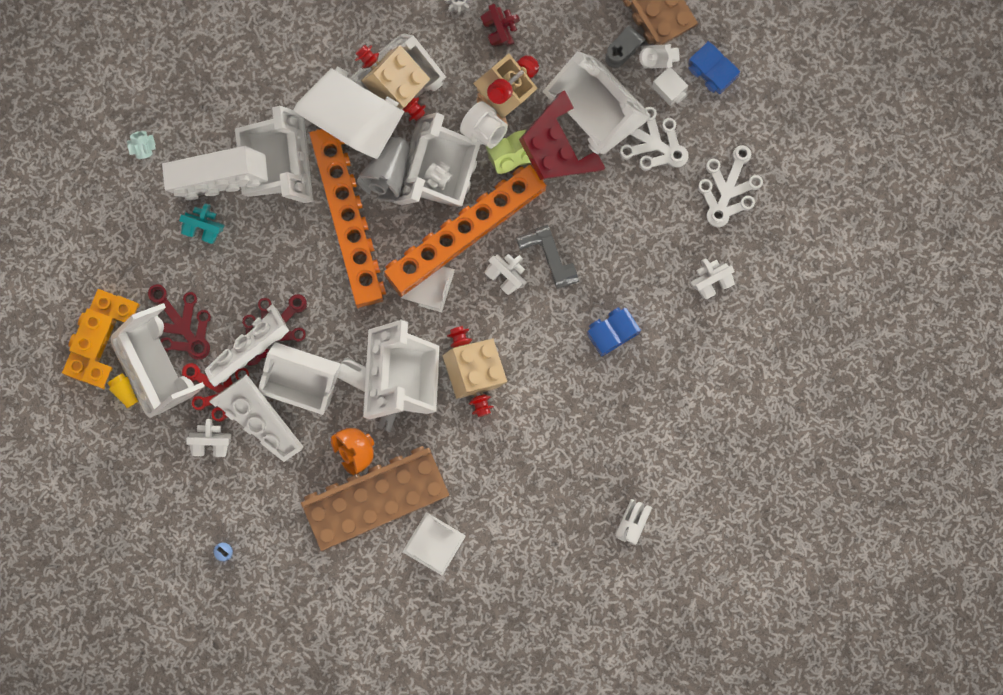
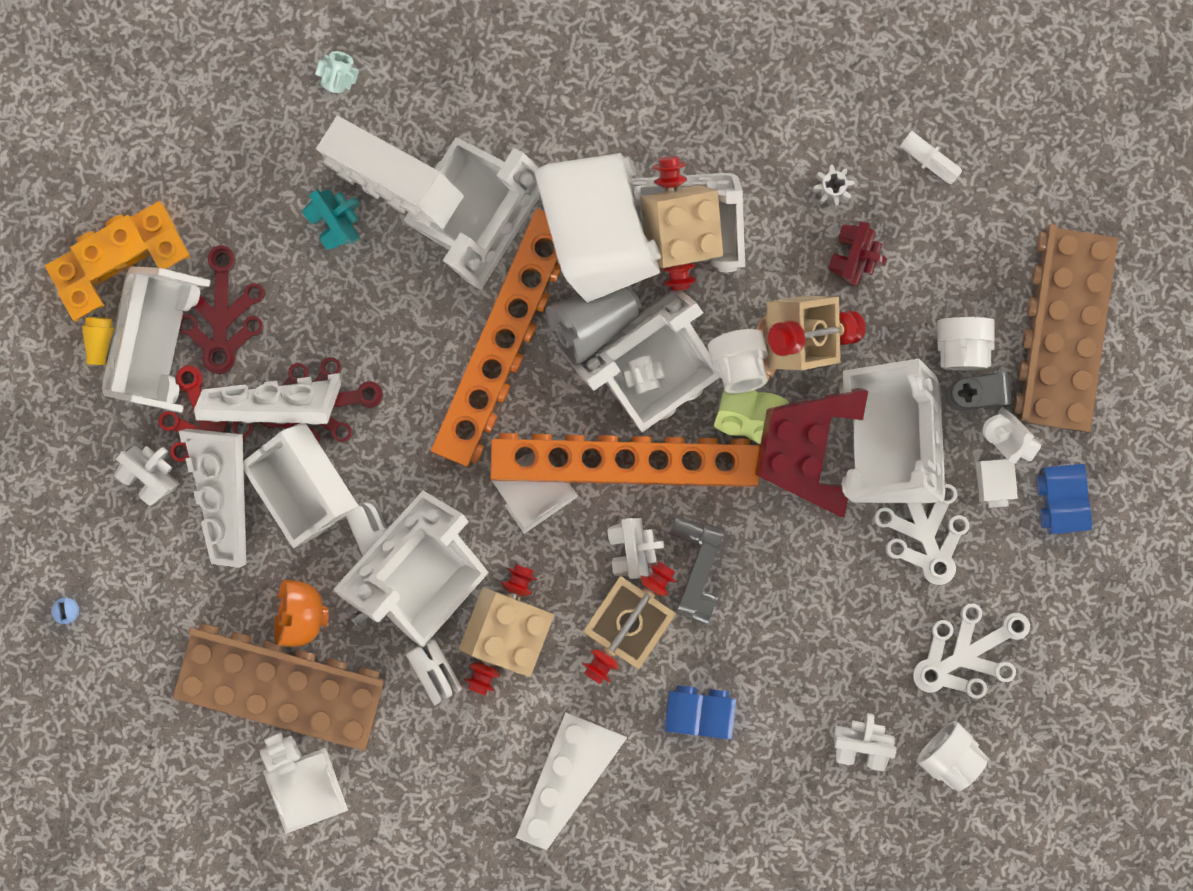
camera: 45 degrees right, 5 degrees up
(404, 532) = (280, 753): none -> white gear
(452, 422) = (423, 665): none -> white arm
(536, 311) = (629, 622): none -> tan brick
(569, 420) = (570, 771): none -> white wing
(595, 26) = (966, 343): none -> white piece
(765, 247) = (953, 757): none -> white piece

